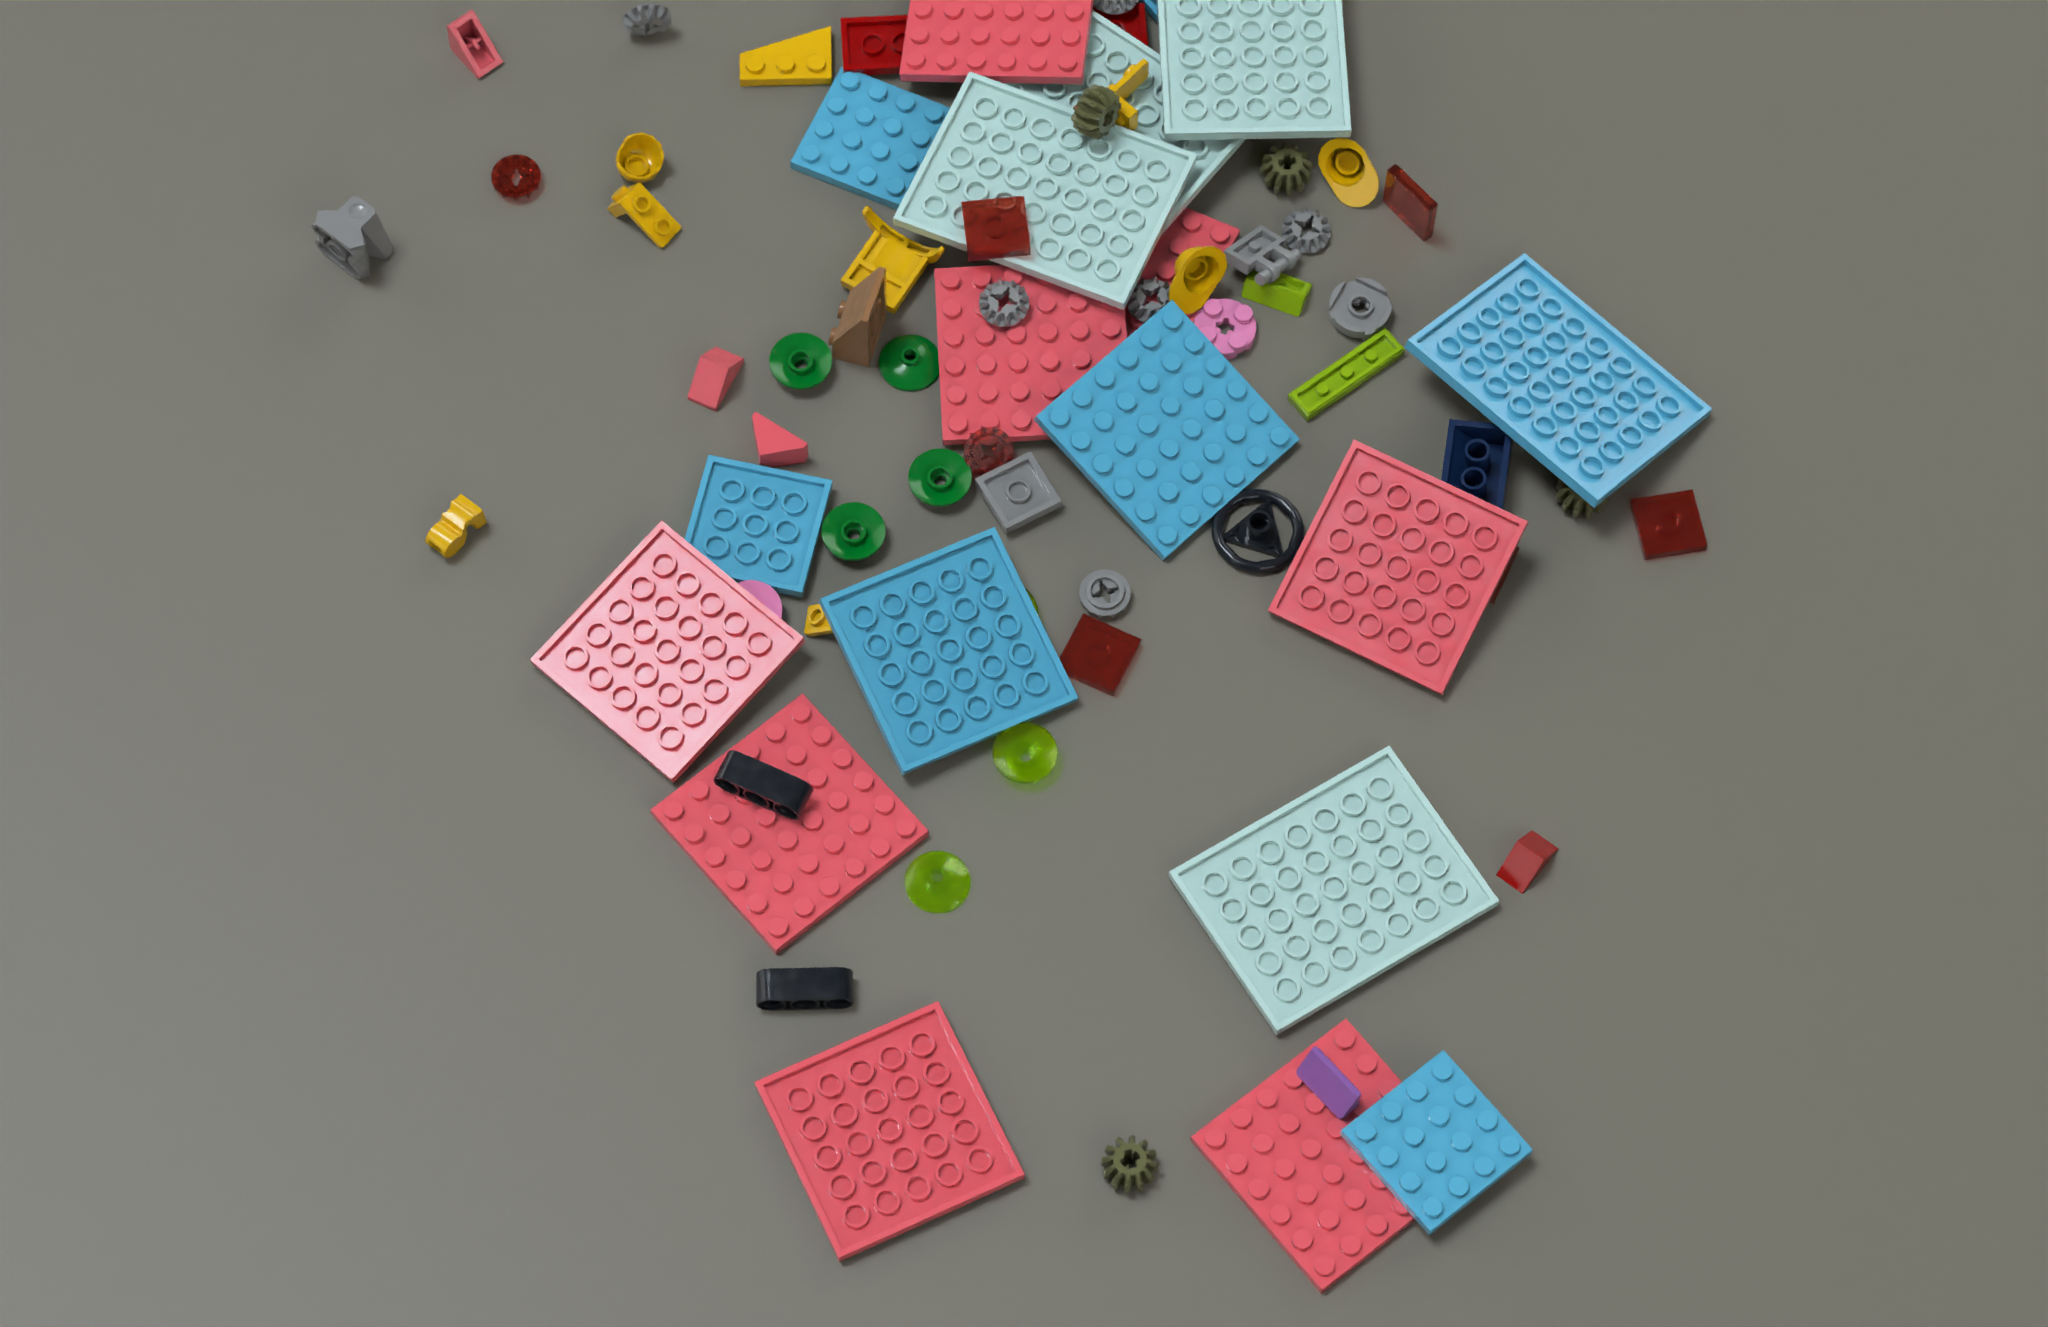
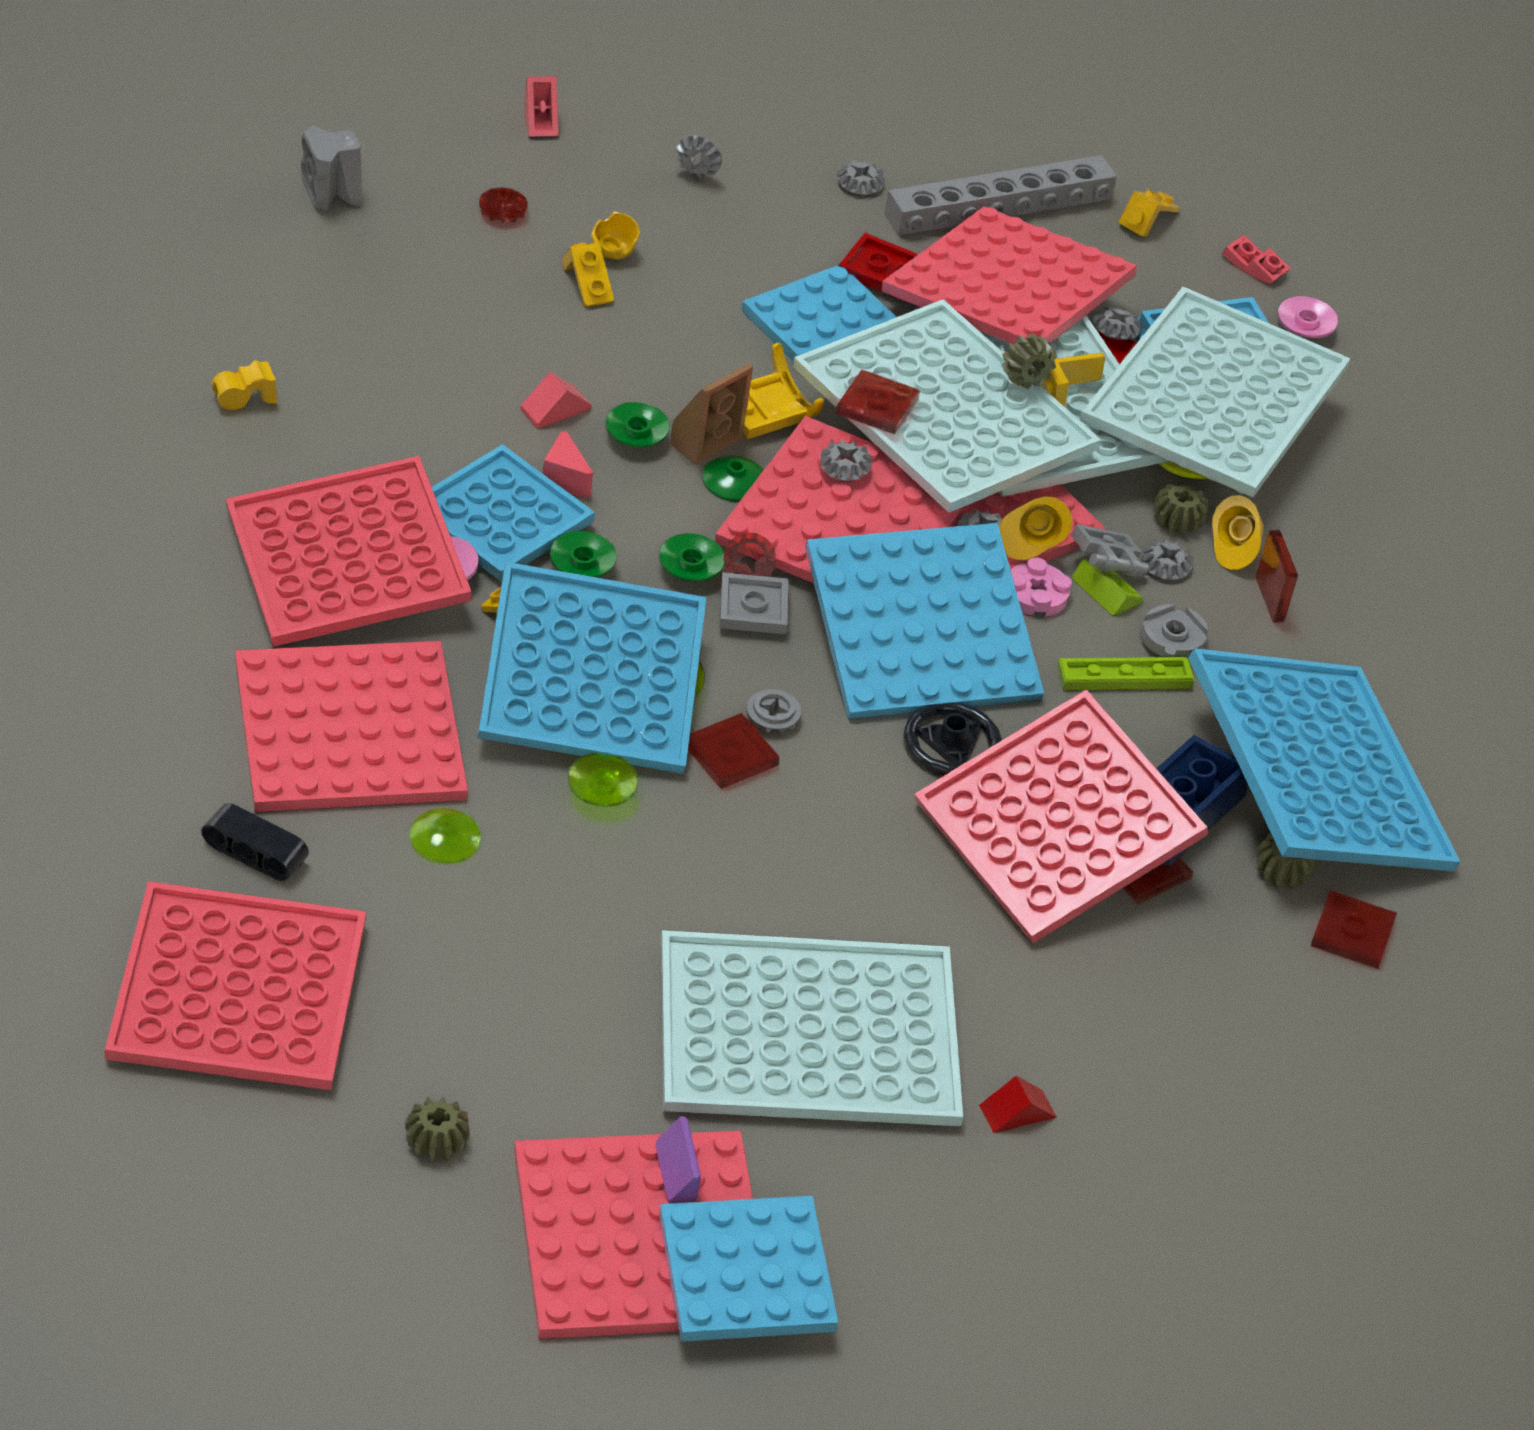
camera: 25 degrees right, 20 degrees down
(763, 784) = (345, 674): black beam -> none
(790, 62) = (799, 244): yellow wing -> none

